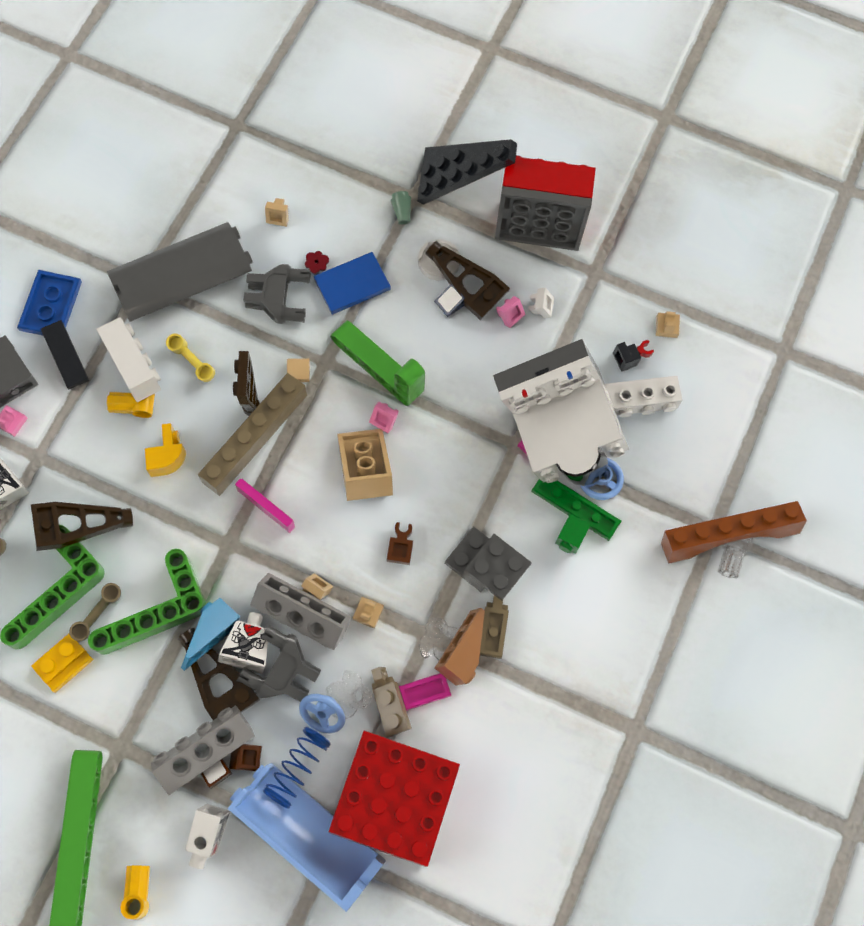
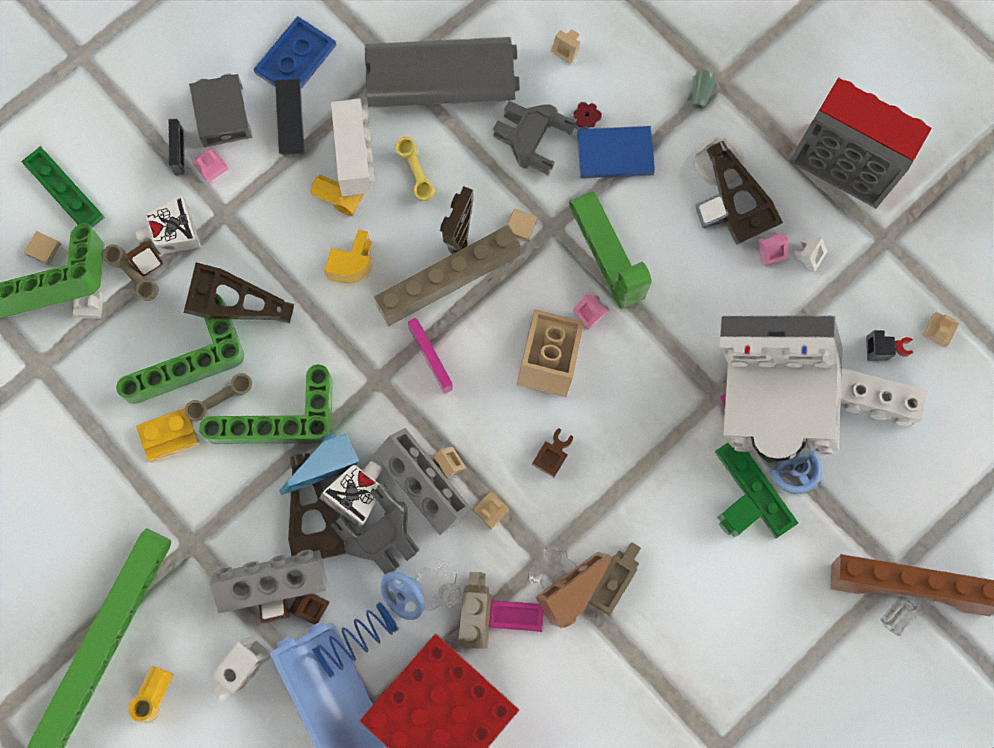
camera: 25 degrees right, 5 degrees up
(458, 165) = (781, 66): black wing -> none
(488, 563) = (636, 510): dark grey bracket -> none

